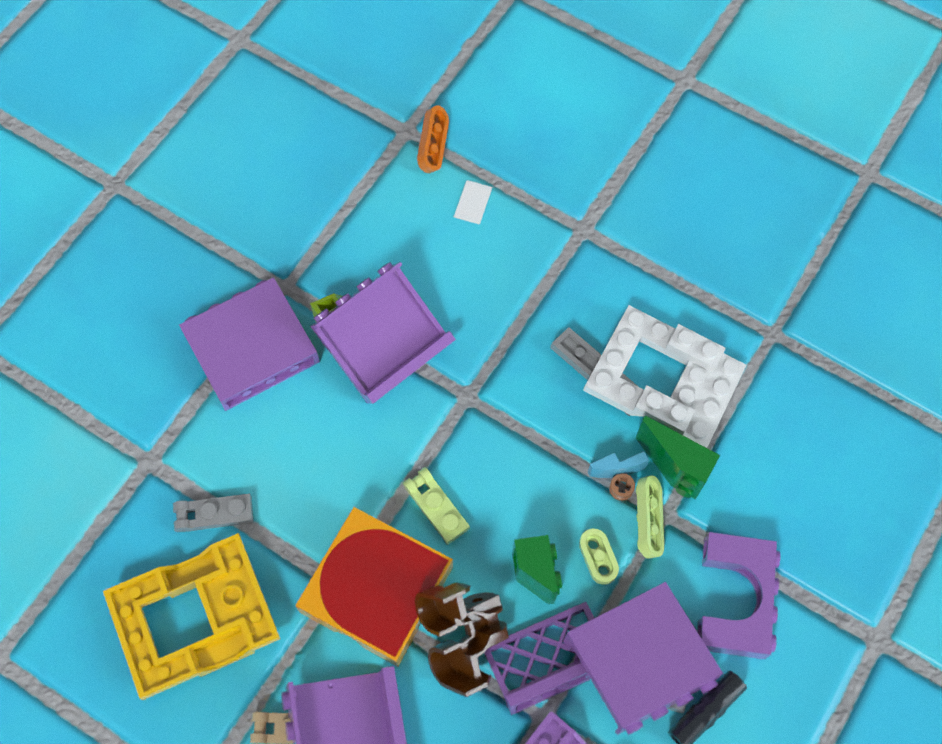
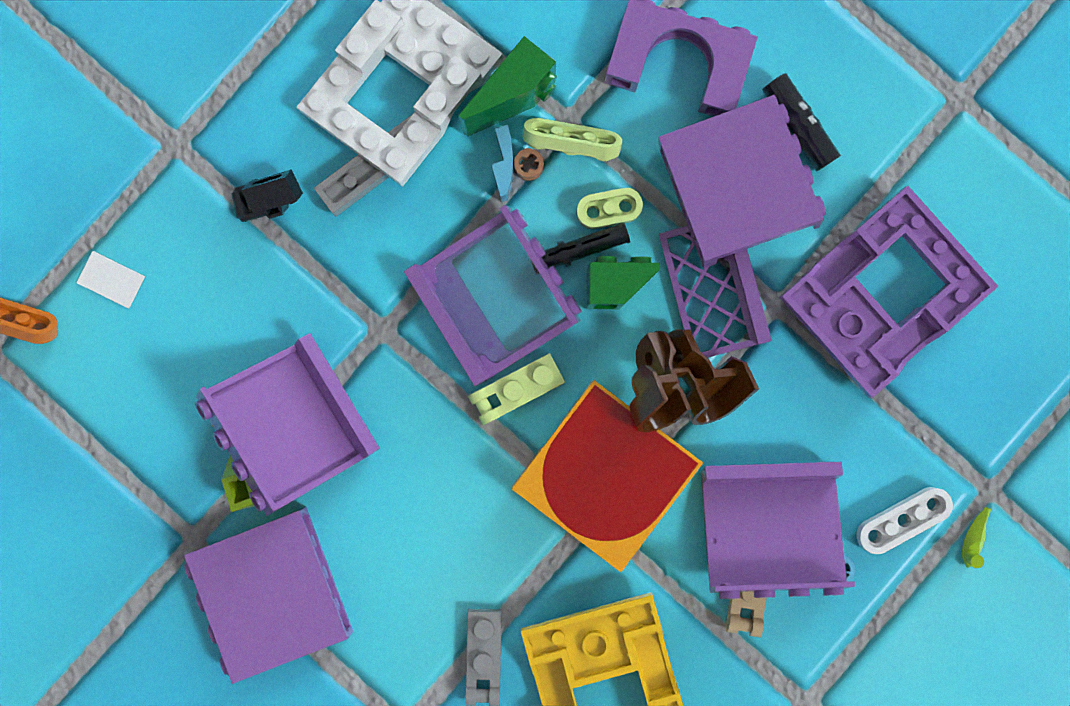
camera: 80 degrees left, 20 degrees up
(507, 474) = (494, 296): none -> clear light blue panel
(555, 295) = (266, 196): none -> black piece
(555, 528) = (586, 246): none -> black pin

